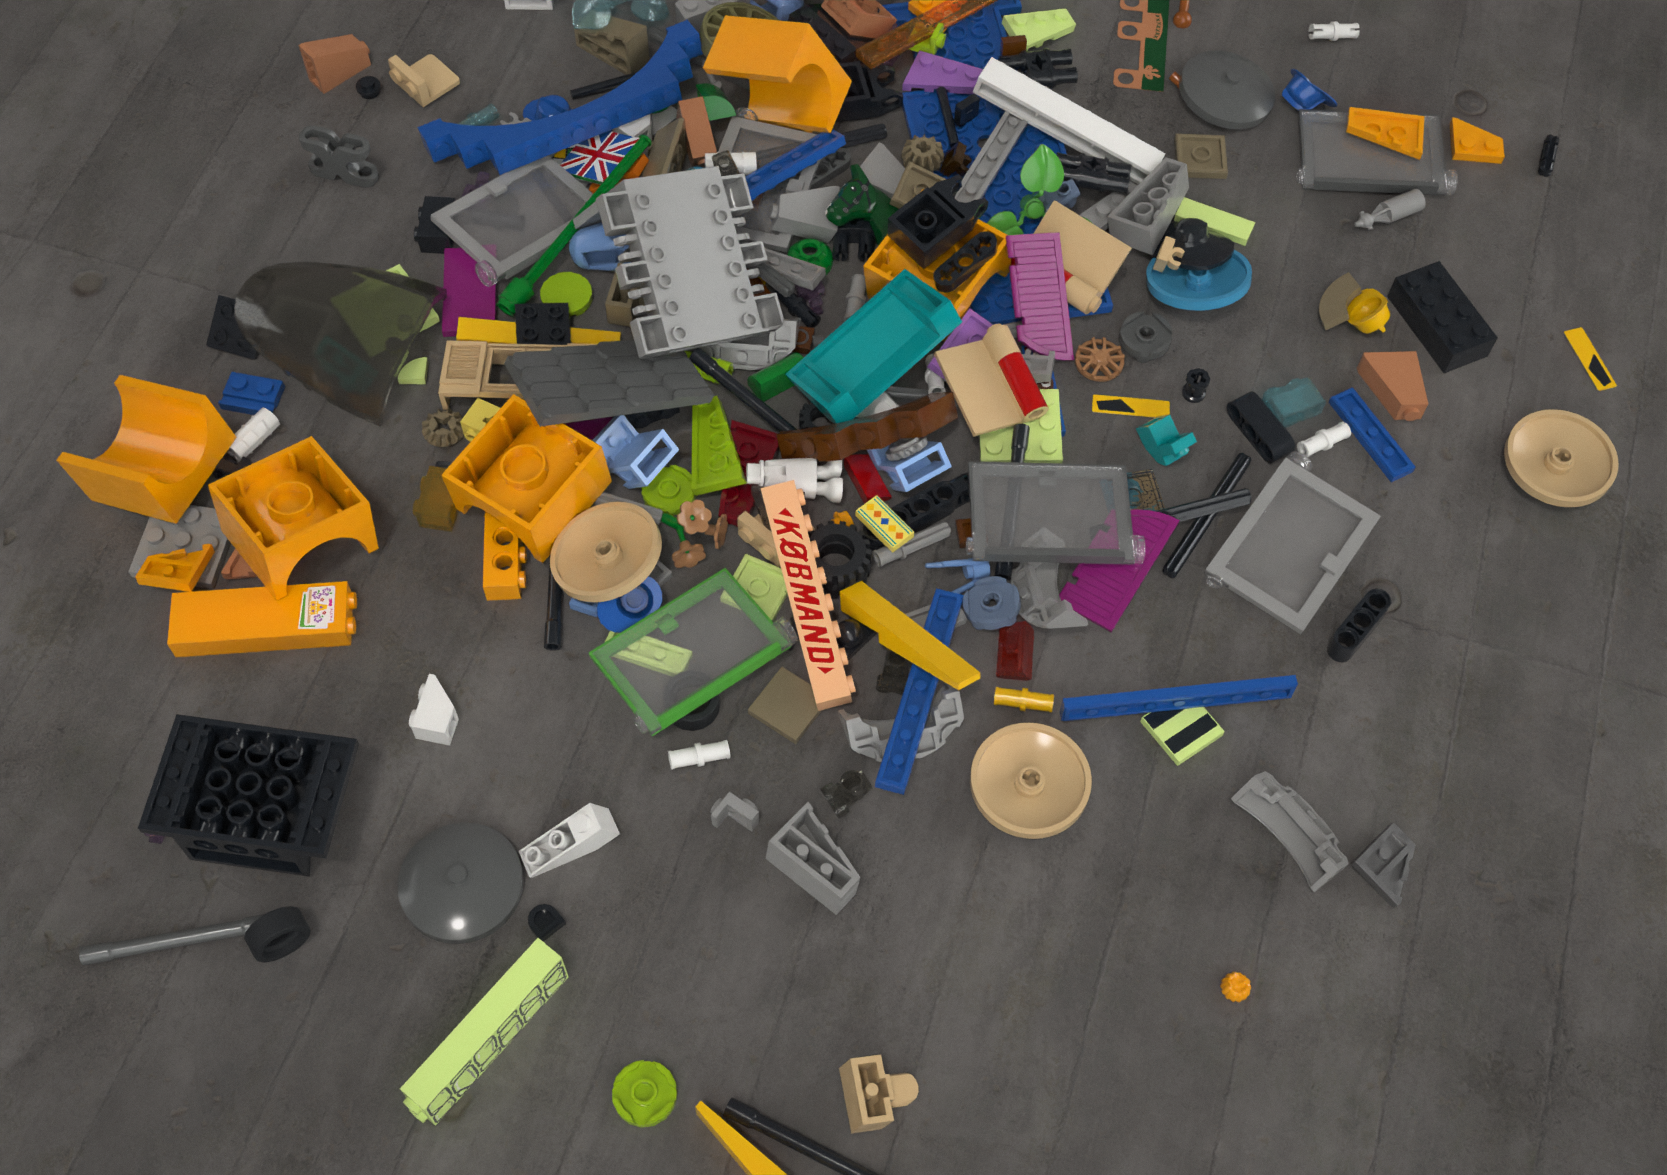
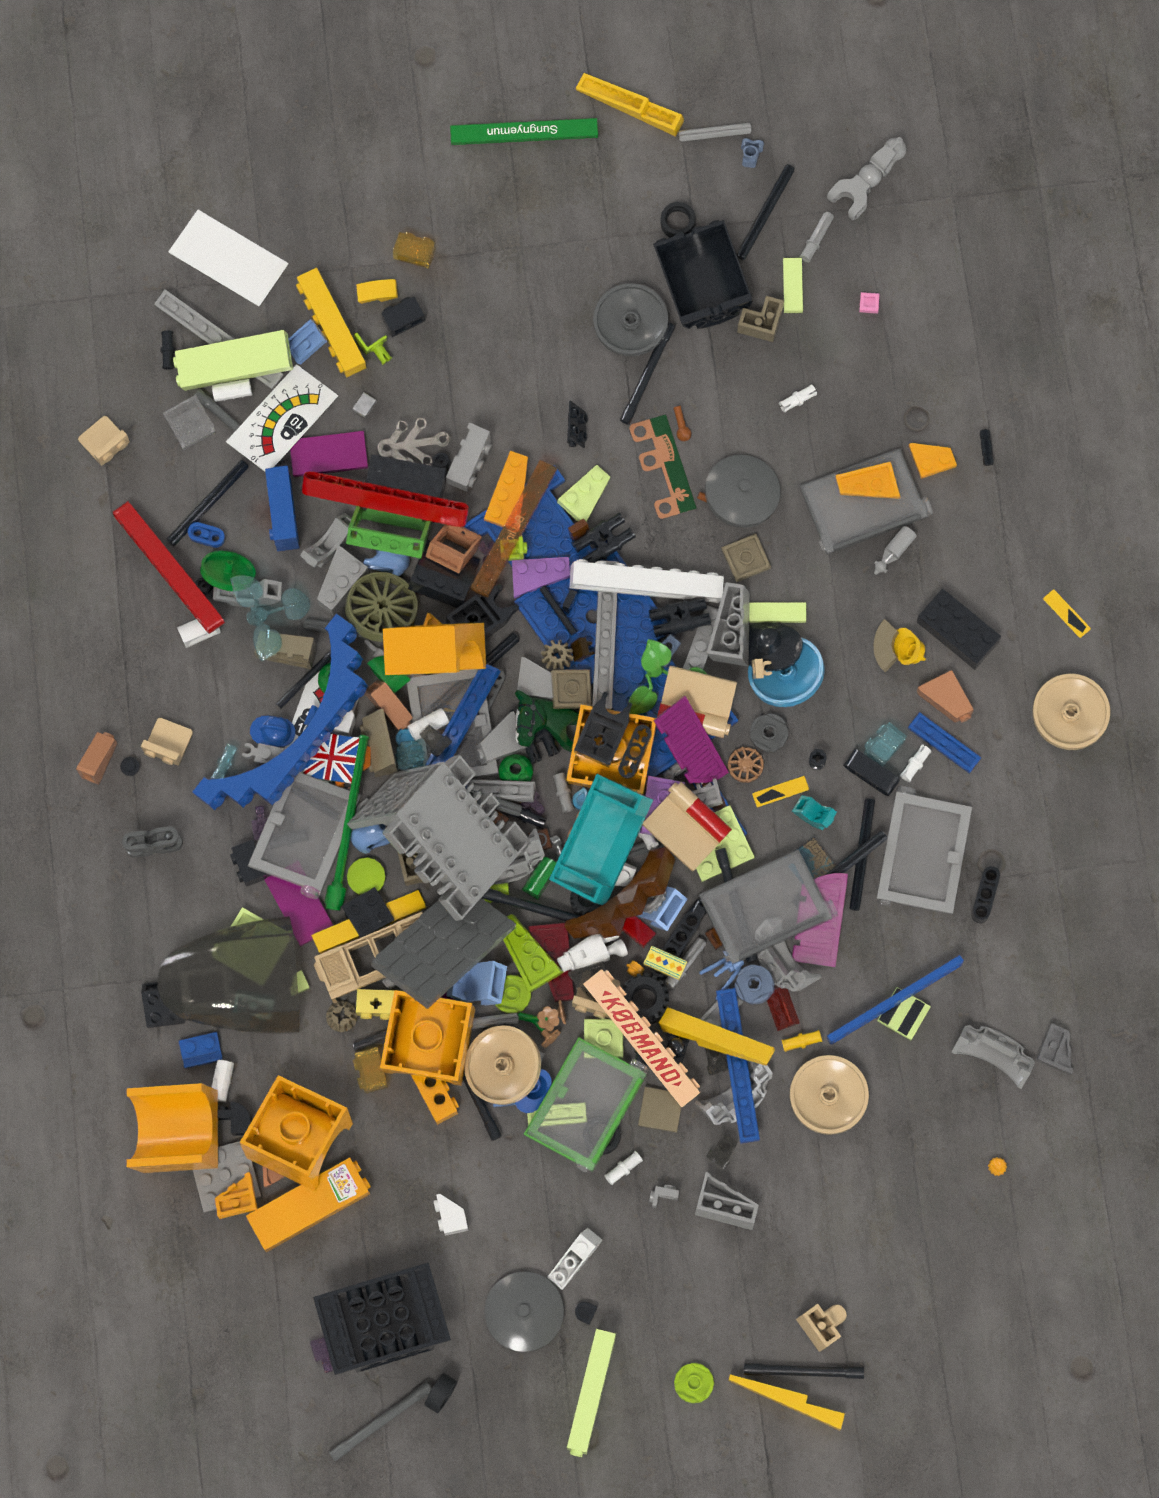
camera: 20 degrees left, 15 degrees up
(1303, 94) = (799, 473): blue piece -> none

